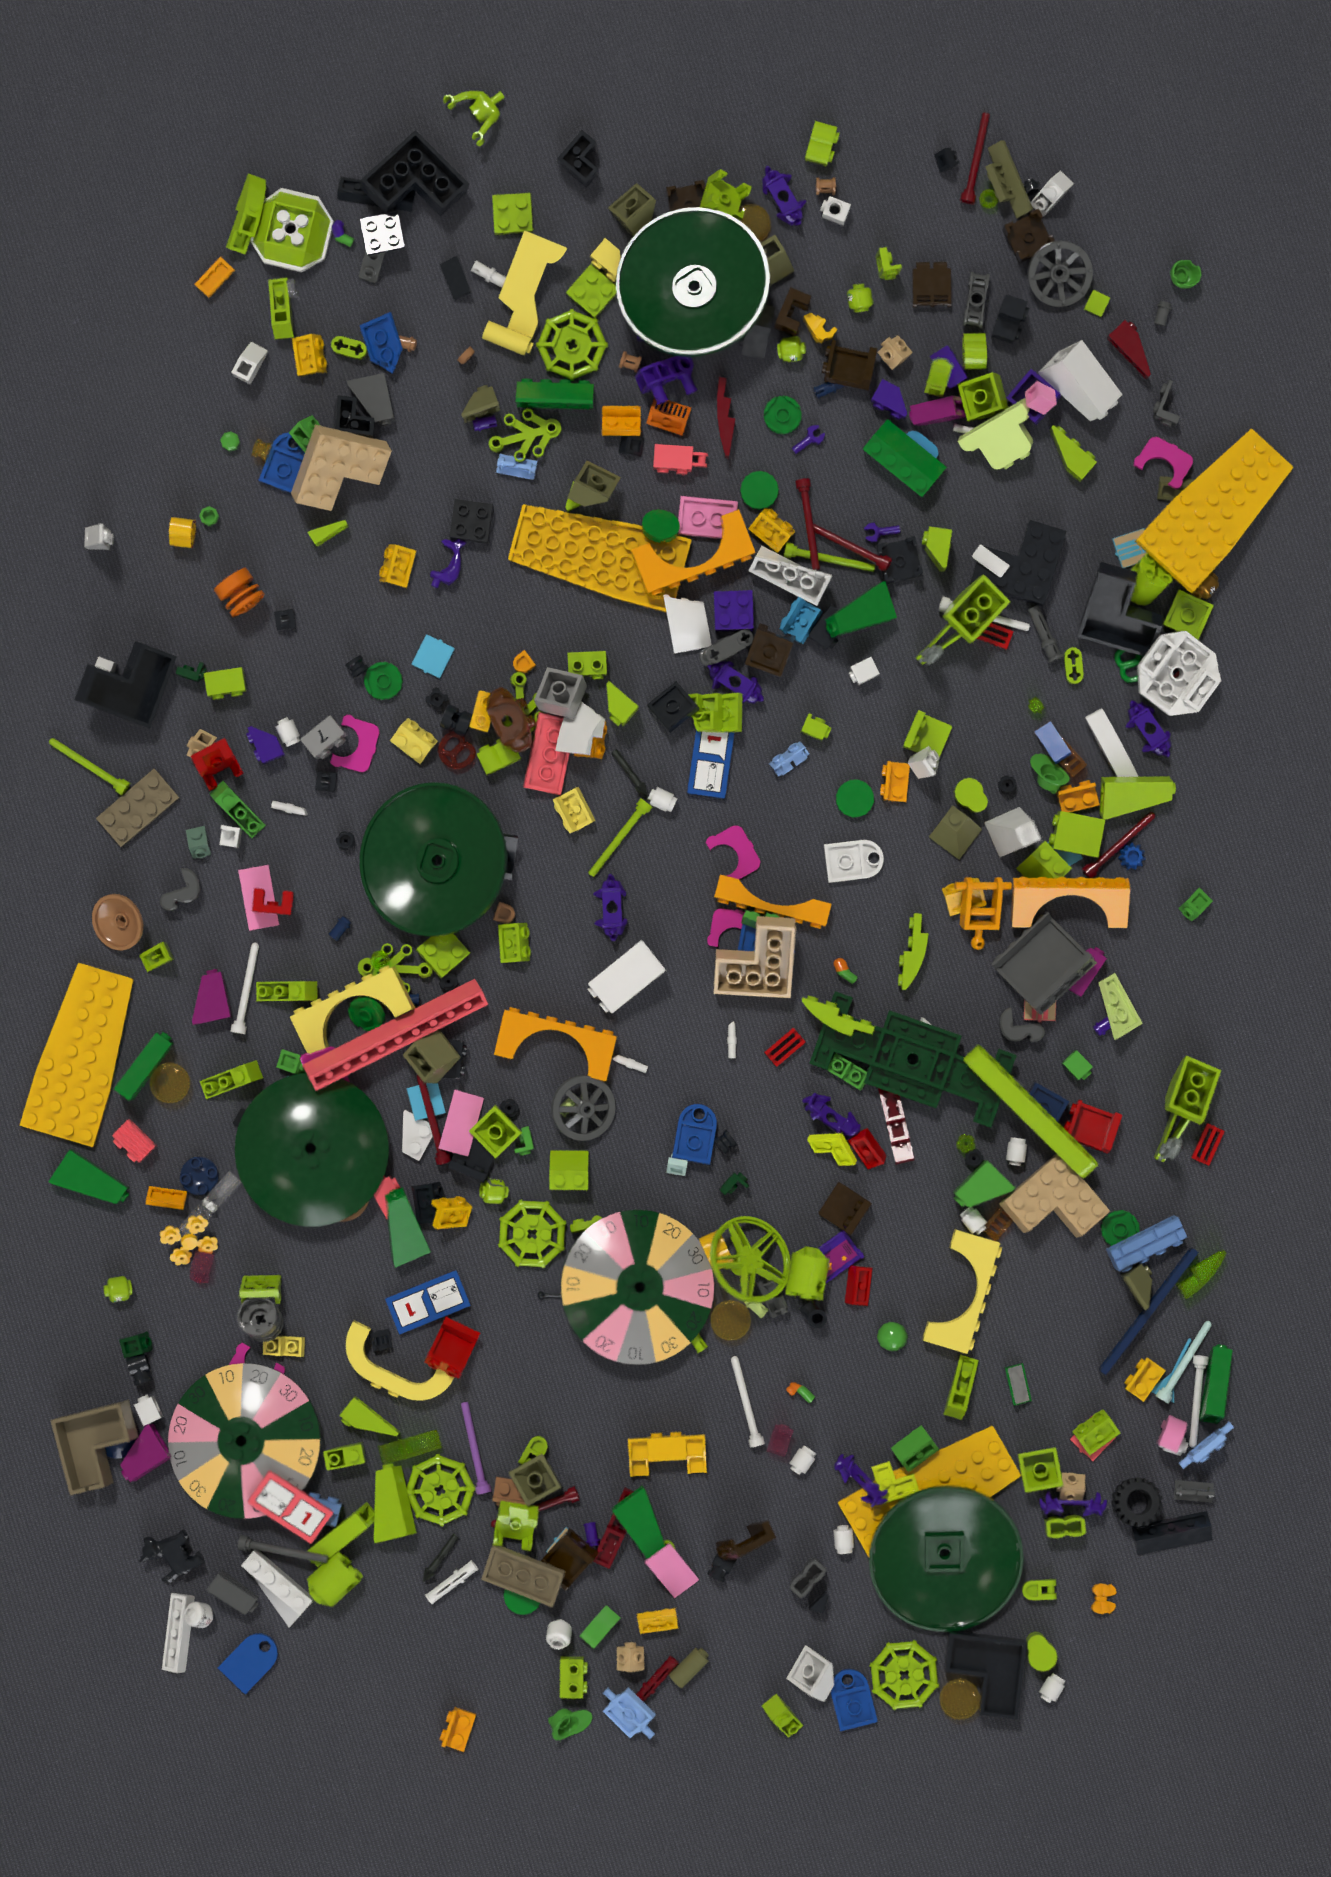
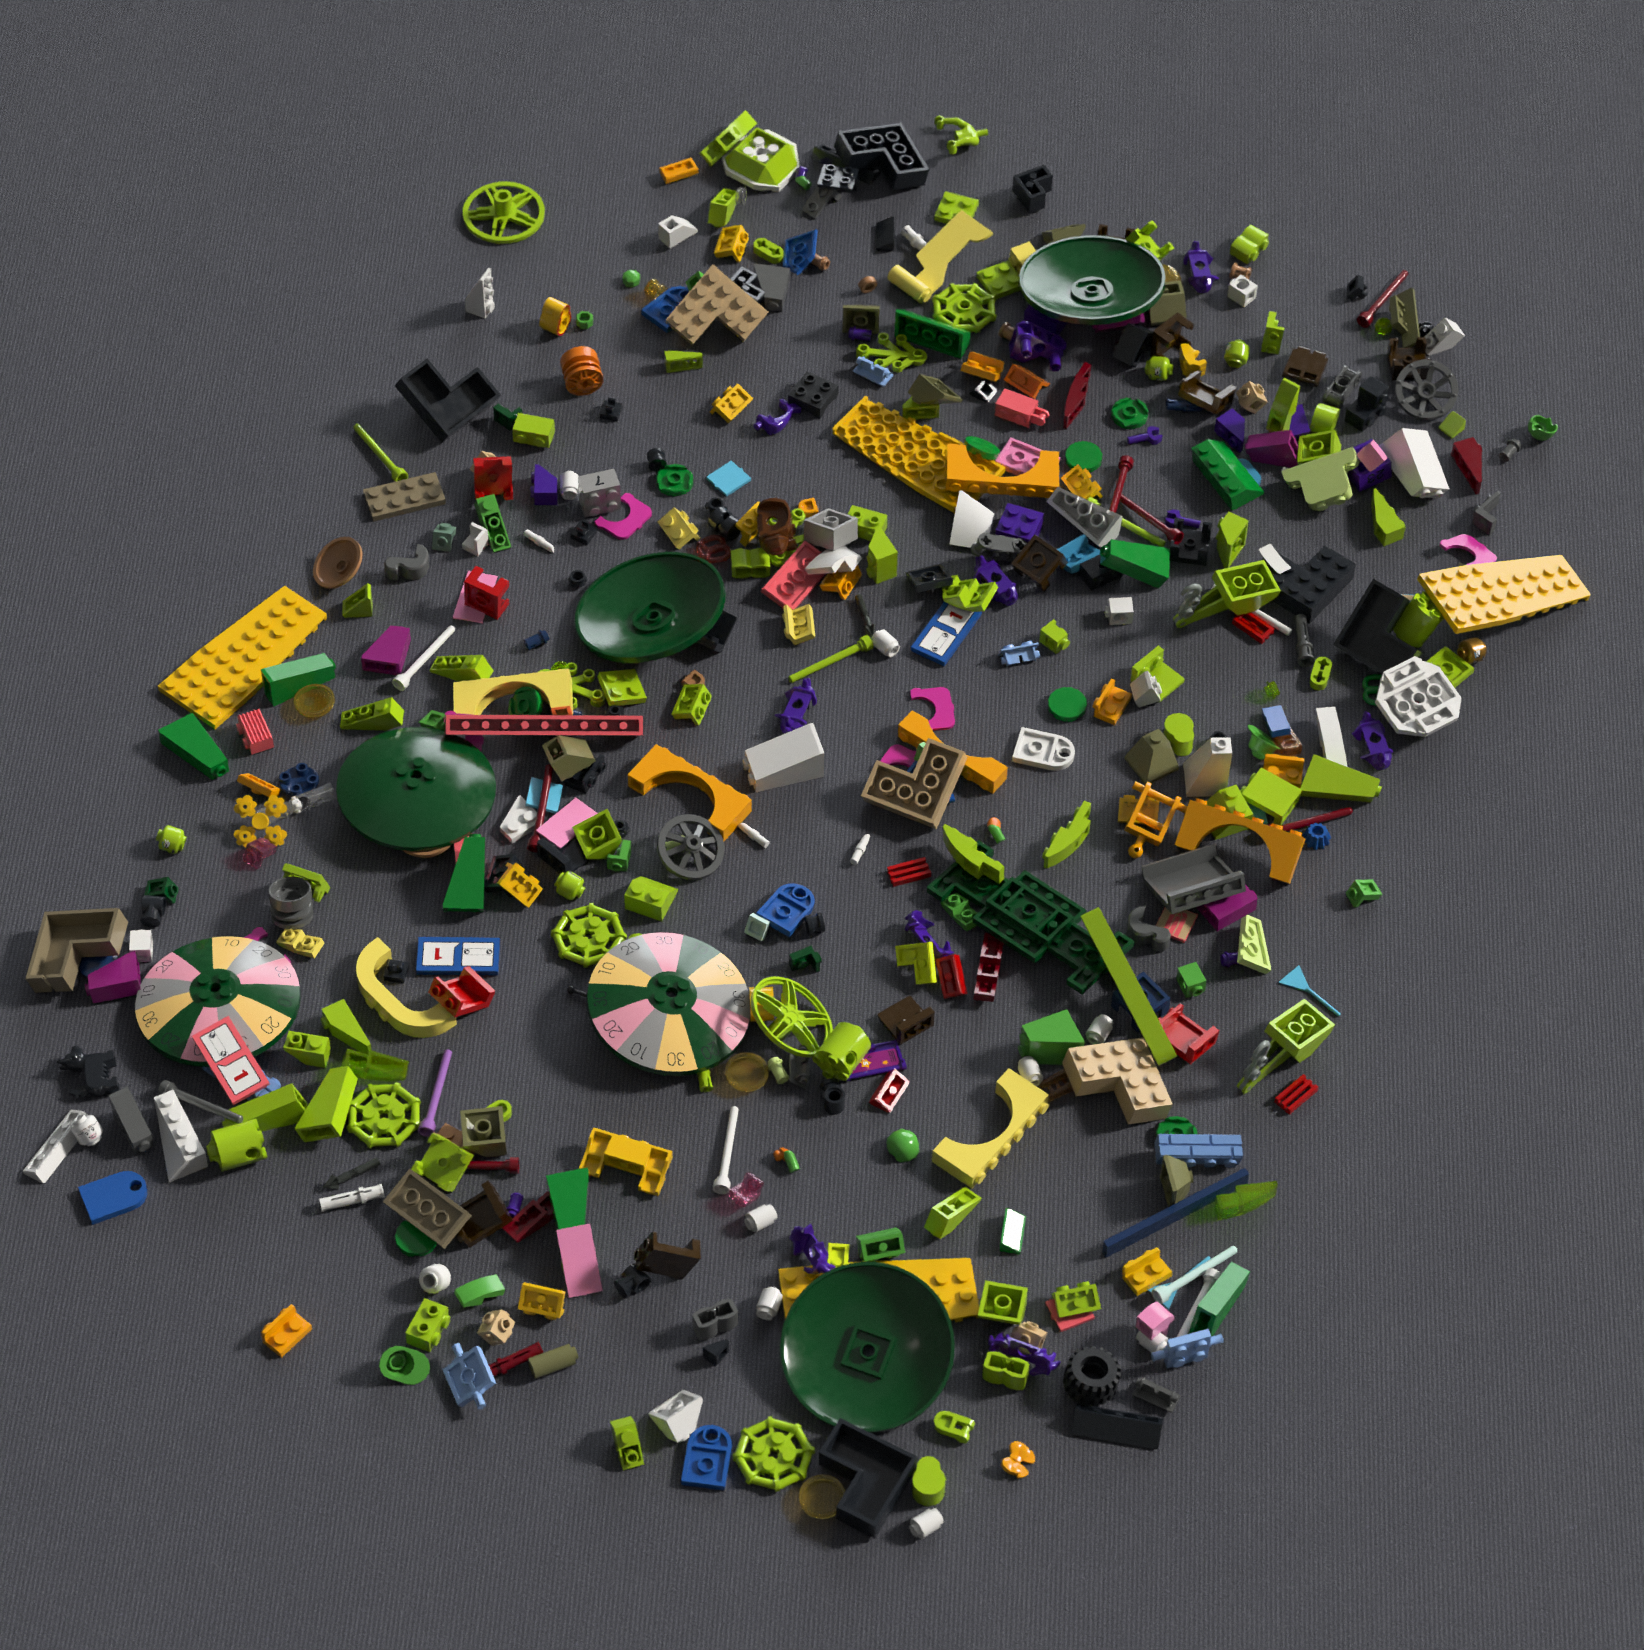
camera: 20 degrees right, 35 degrees down
(65, 405) = (504, 209): none -> lime wheel
(965, 1148) = (1050, 1004): clear neon green plate -> none
(1167, 1022) = (1297, 980): none -> medium azure piece

